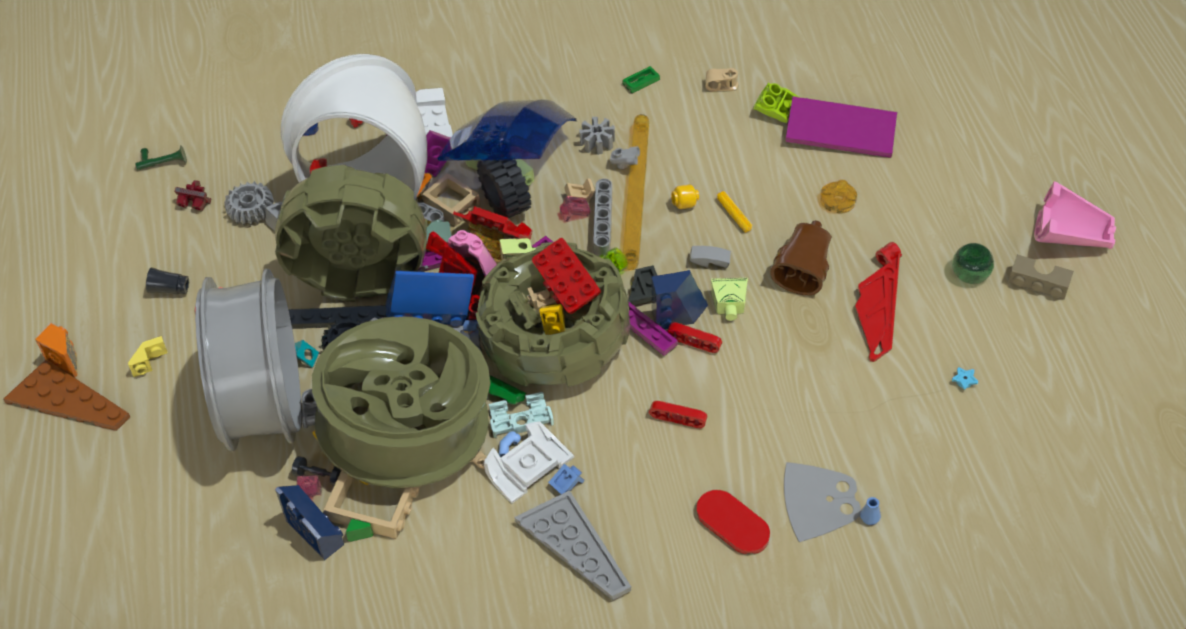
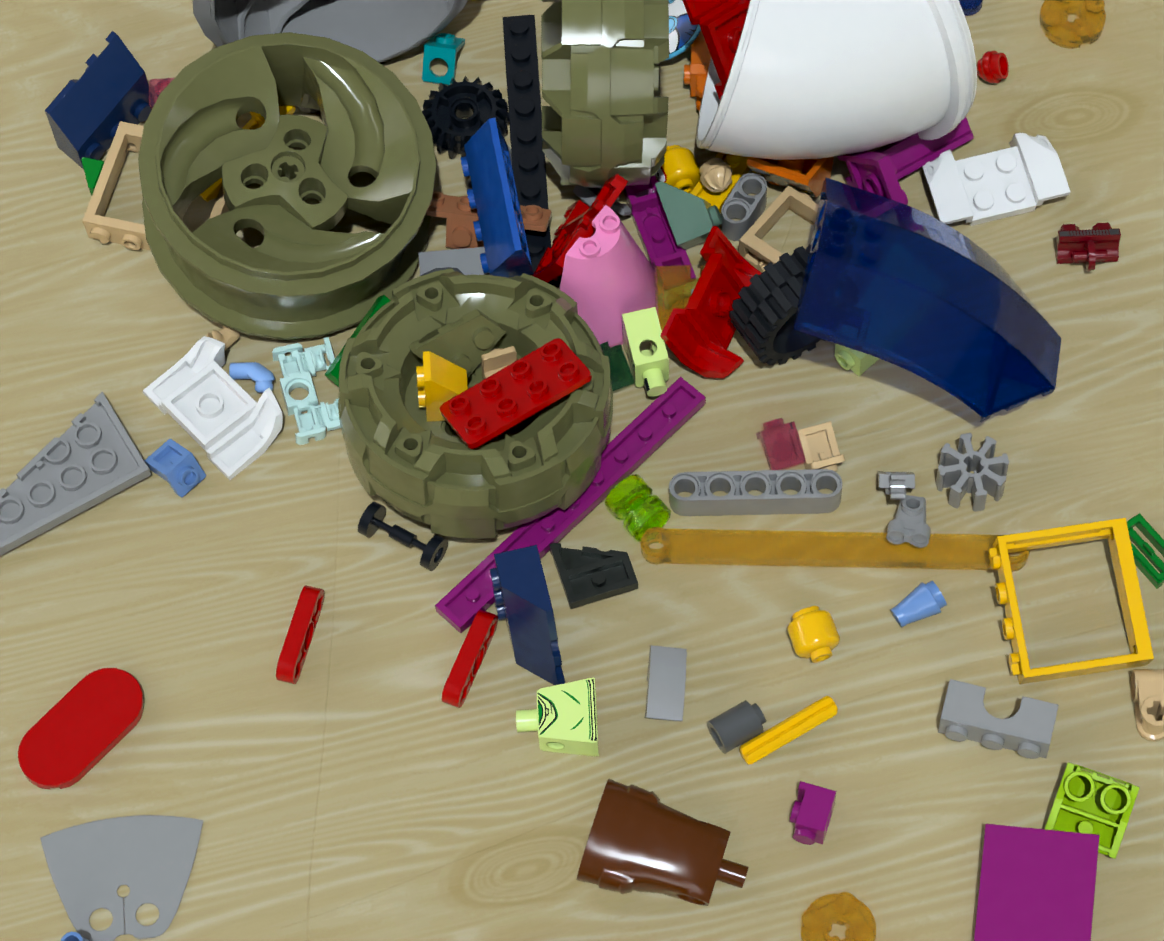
camera: 90 degrees right, 10 degrees up
(471, 87) = (1088, 246): none -> dark red hips
(602, 160) = (896, 483): none -> light grey plate
(630, 354) = (373, 520): none -> black wheel
(667, 157) = (919, 604): none -> medium blue cone
(673, 80) = (1128, 589): none -> yellow window
(728, 142) = (1025, 732): none -> light grey arch
(734, 229) = (736, 726): none -> dark grey brick
(781, 200) = (812, 813): none -> magenta brick

